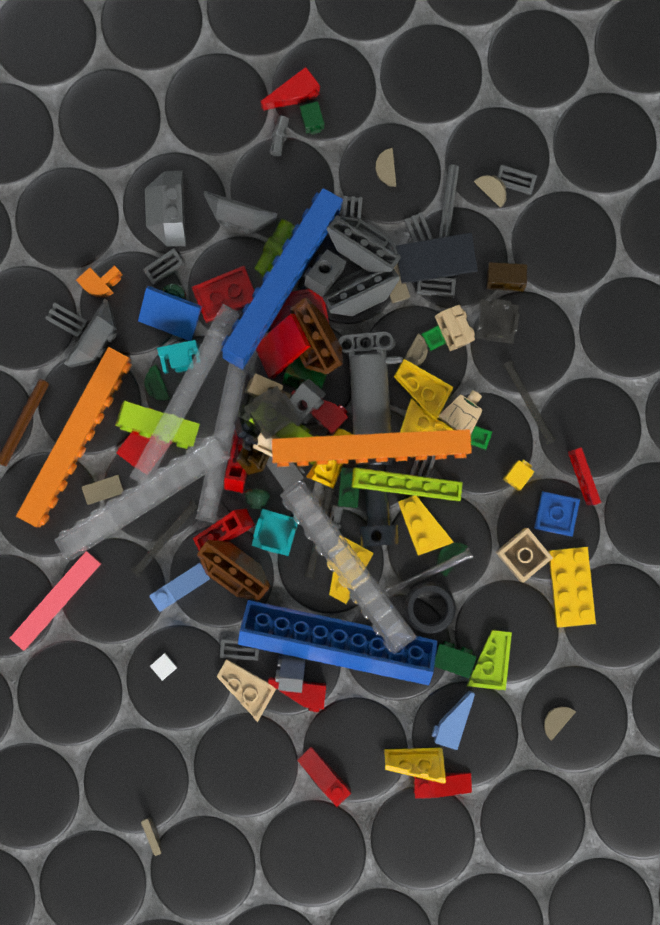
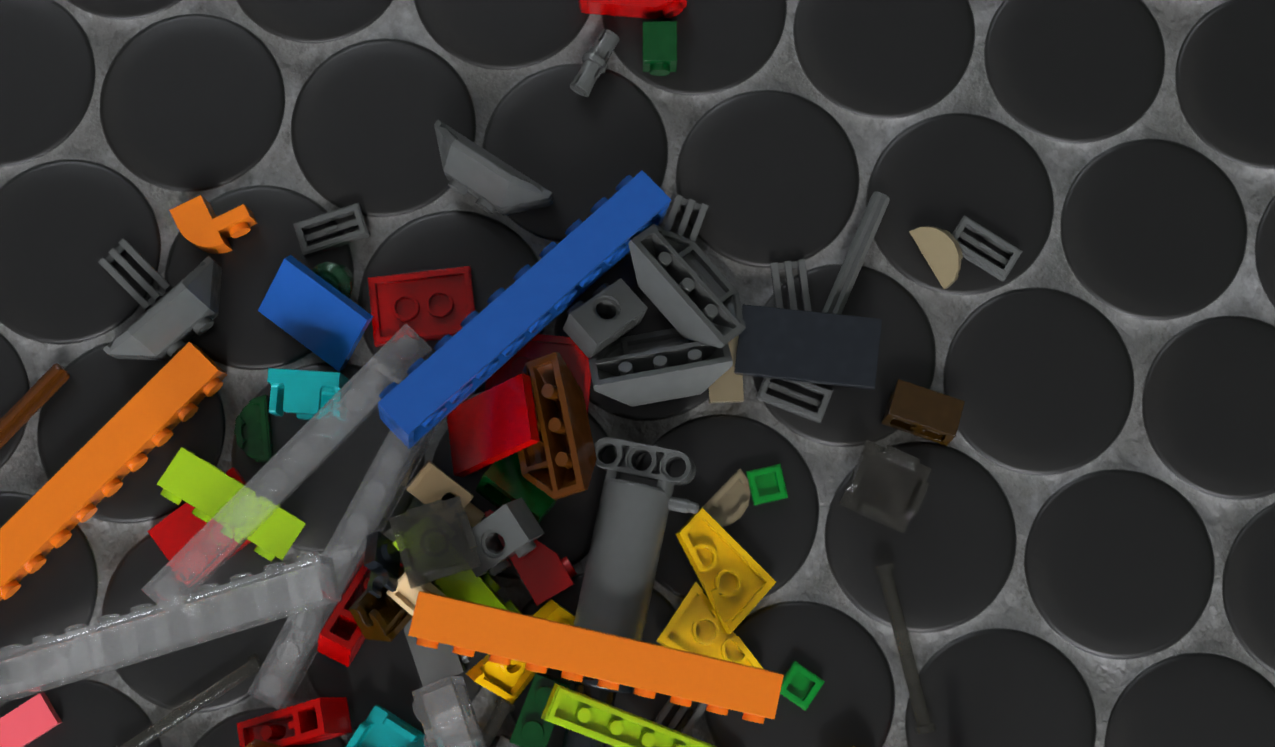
camera: 10 degrees right, 5 degrees down
(102, 489) = (105, 590): dark tan tile -> none
(166, 208) = (366, 131): dark grey wedge -> none
(256, 498) = (370, 684): clear green cone -> none
(274, 246) = (529, 246): clear neon green piece -> none
(385, 168) = (762, 166): dark tan tile -> none
(455, 327) = (808, 477): tan brick -> none
(462, 412) = (780, 634): tan torso -> none

